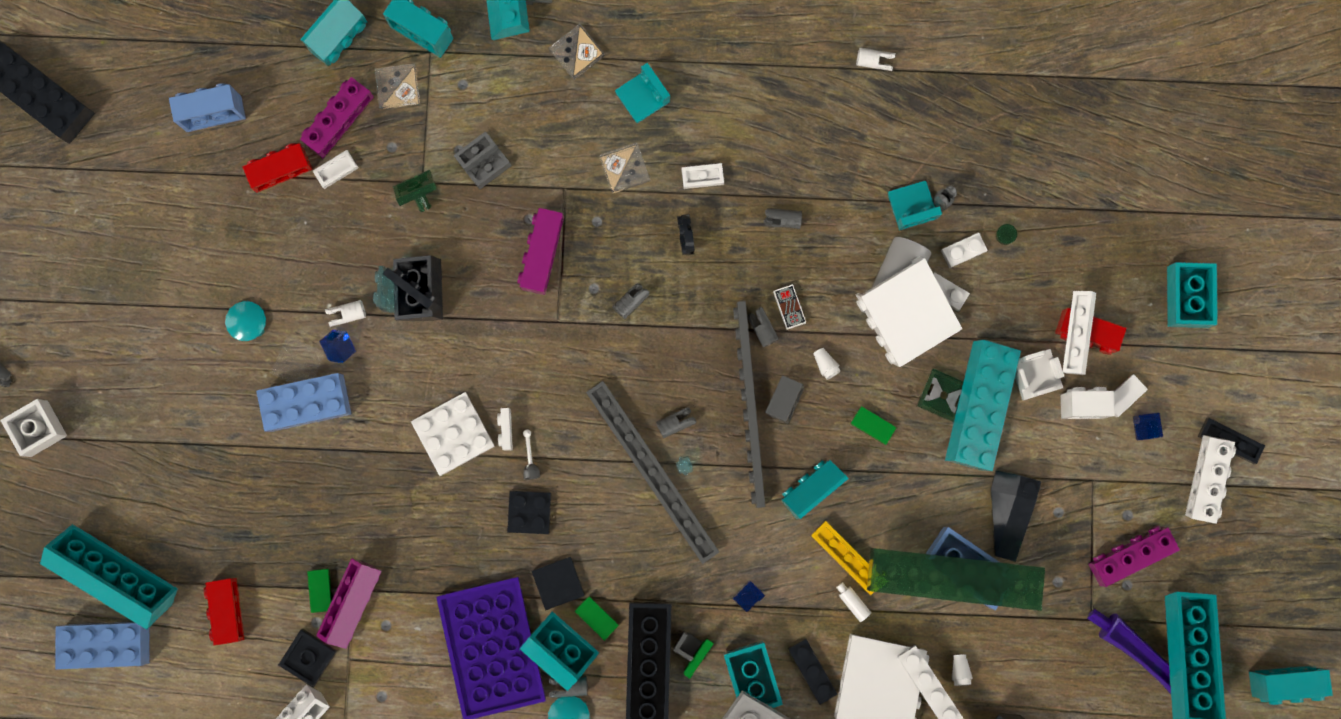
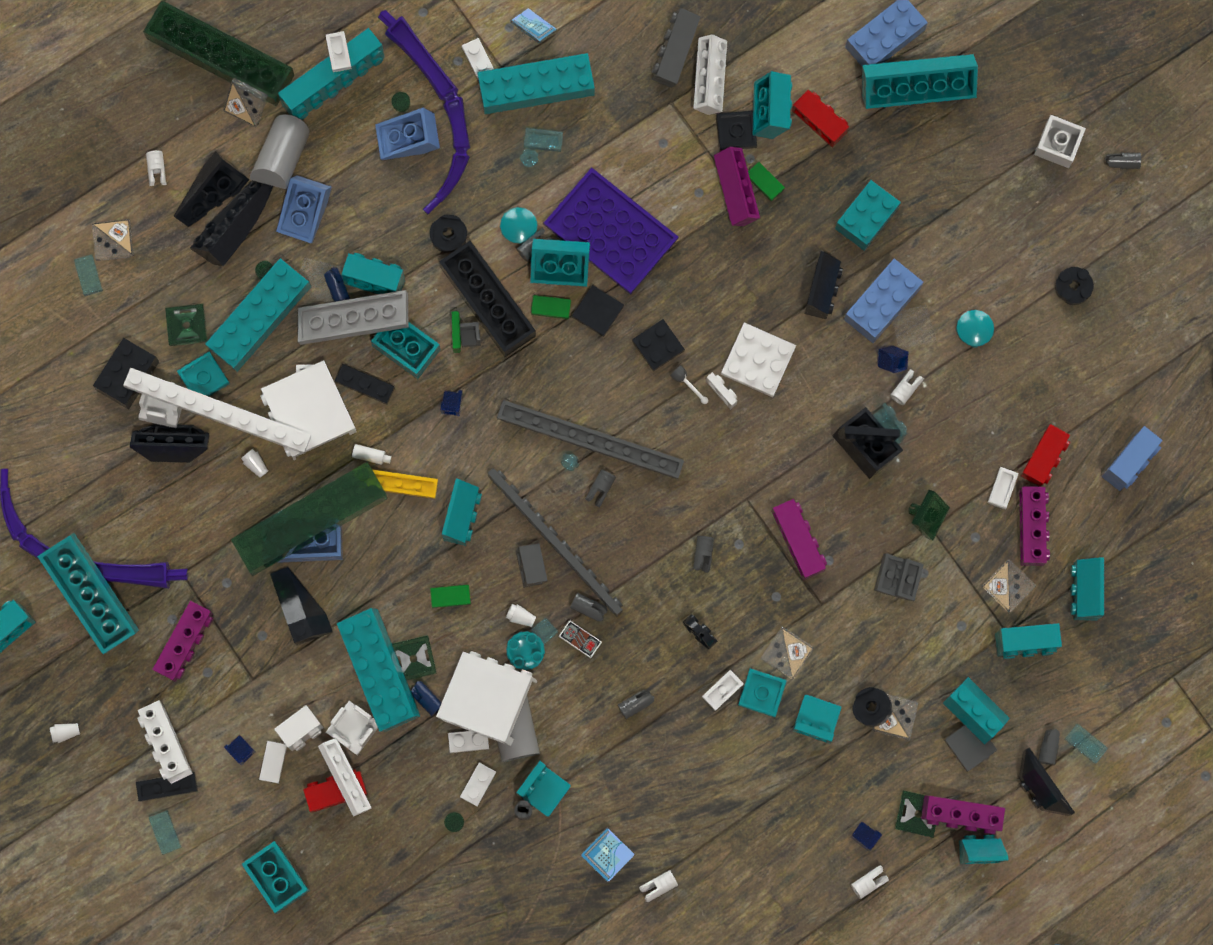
camera: 140 degrees right, 5 degrees down
(126, 283) = (1077, 275): none -> black plate
(255, 489) = (867, 215): none -> teal brick
(257, 655) = (772, 105): none -> teal brick
(345, 454) = (823, 286): none -> black slope
(583, 60) = (861, 705): none -> black plate
(670, 151) = (762, 693): none -> teal tile
(814, 336) = (545, 630): none -> clear light blue tile
(843, 331) = (525, 650): none -> teal dish
(900, 111) = (607, 855): none -> piece
(957, 352) = (426, 698): none -> dark blue hinge
(1257, 404) = (165, 832): none -> clear light blue tile
(1291, 554) = (63, 732): none -> white cone

